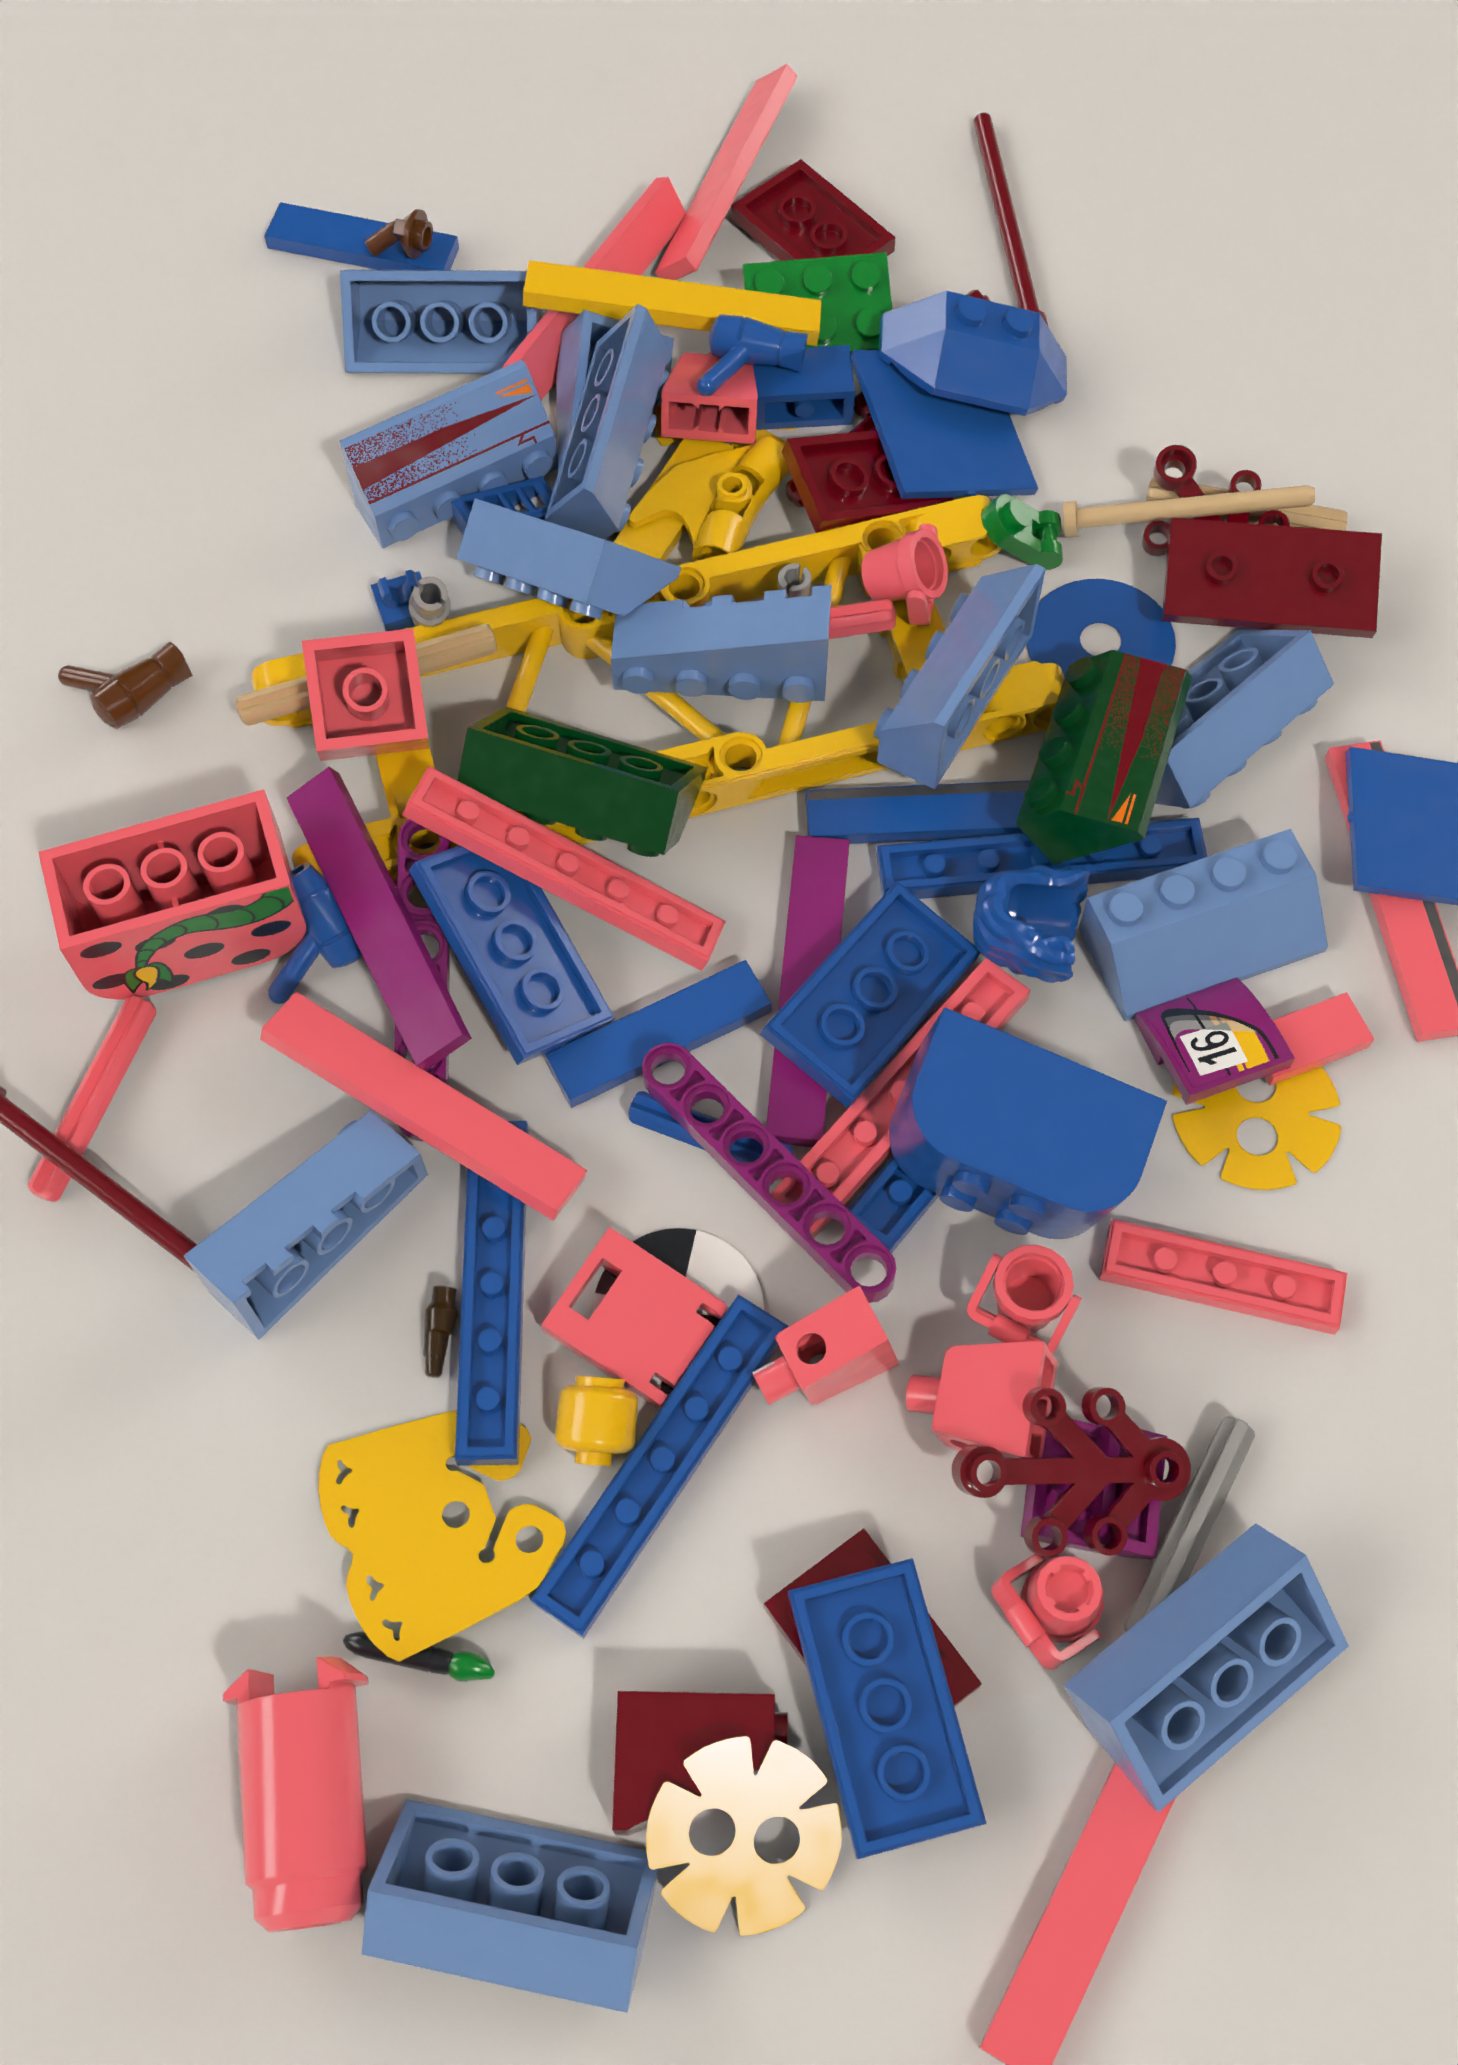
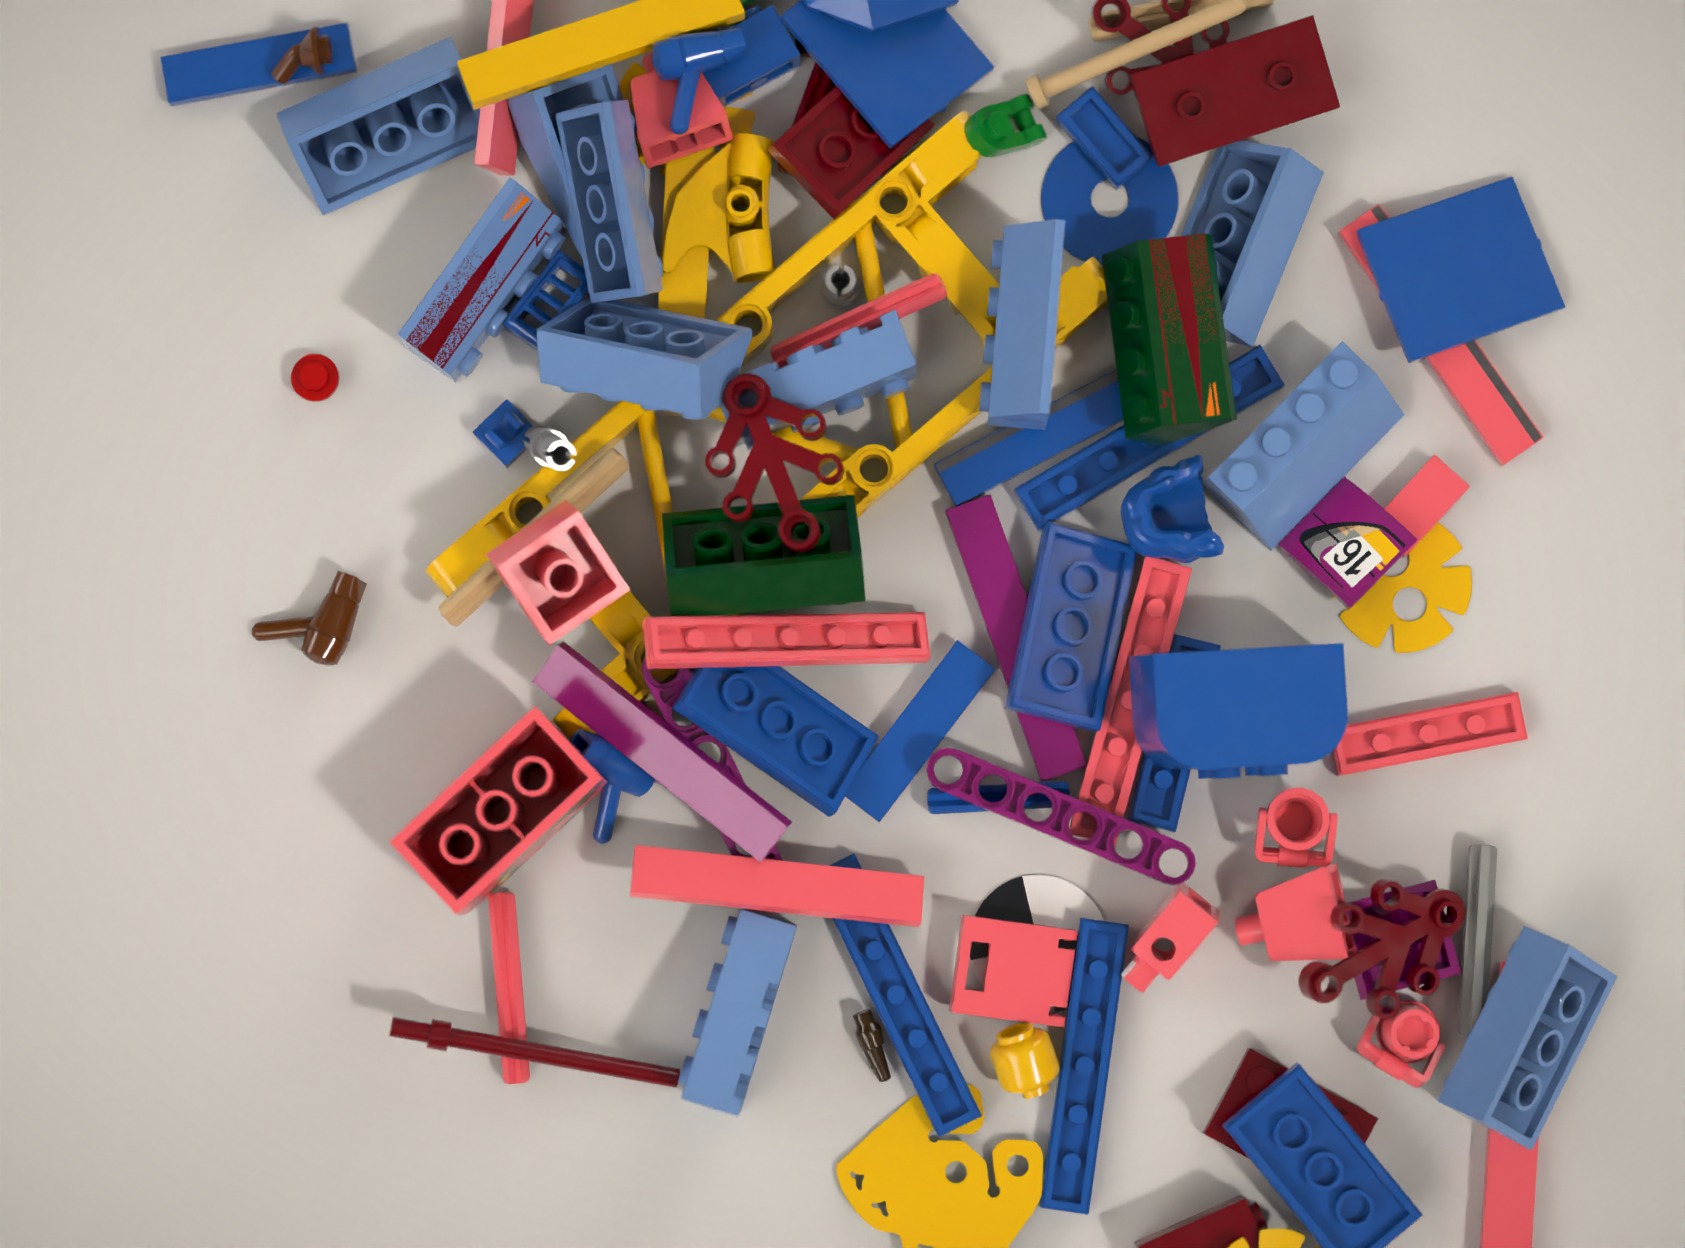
camera: 25 degrees left, 20 degrees up
(255, 489) = (315, 377): none -> red plate
(639, 619) = (769, 454): none -> dark red plant
(909, 571) = (938, 242): coral piece -> none
(1119, 583) = (1104, 138): none -> blue tile

